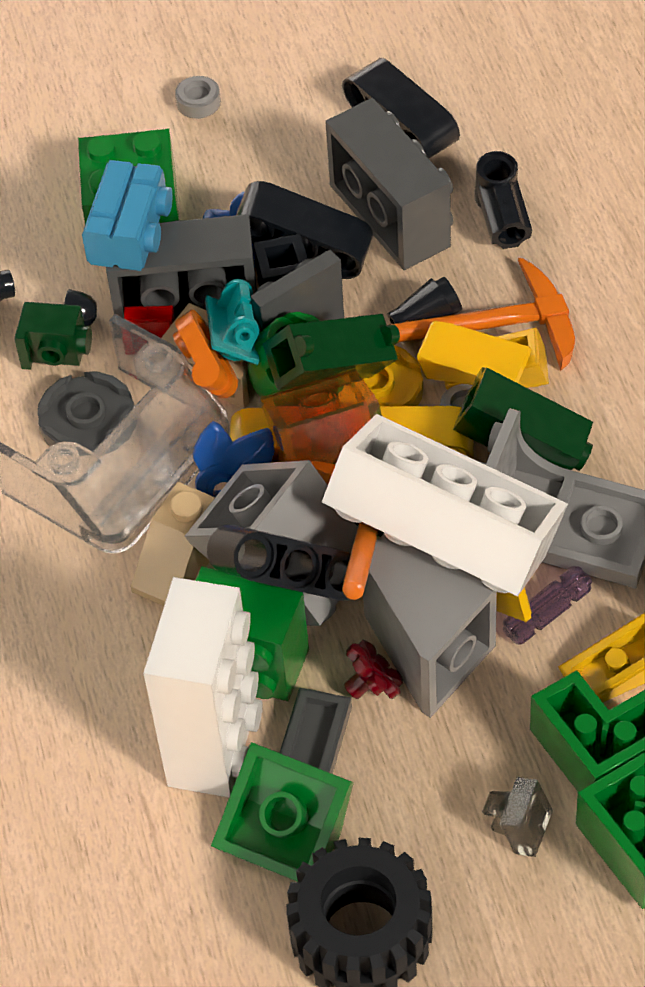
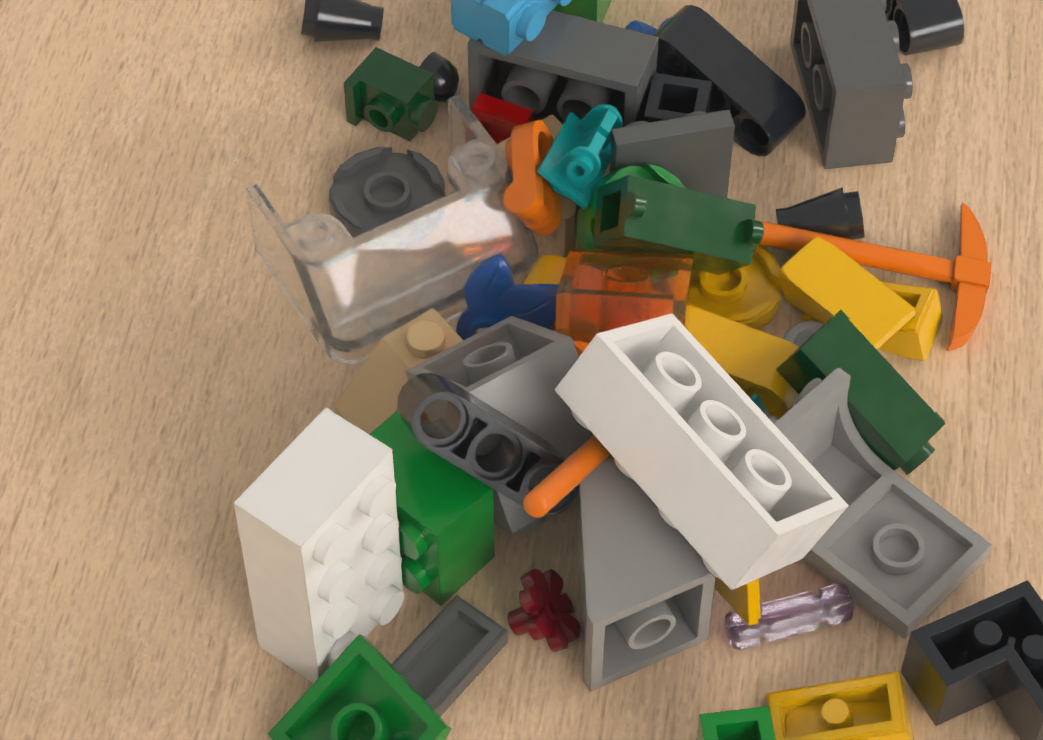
camera: 20 degrees right, 0 degrees up
(501, 199) = (973, 128): black piece -> none

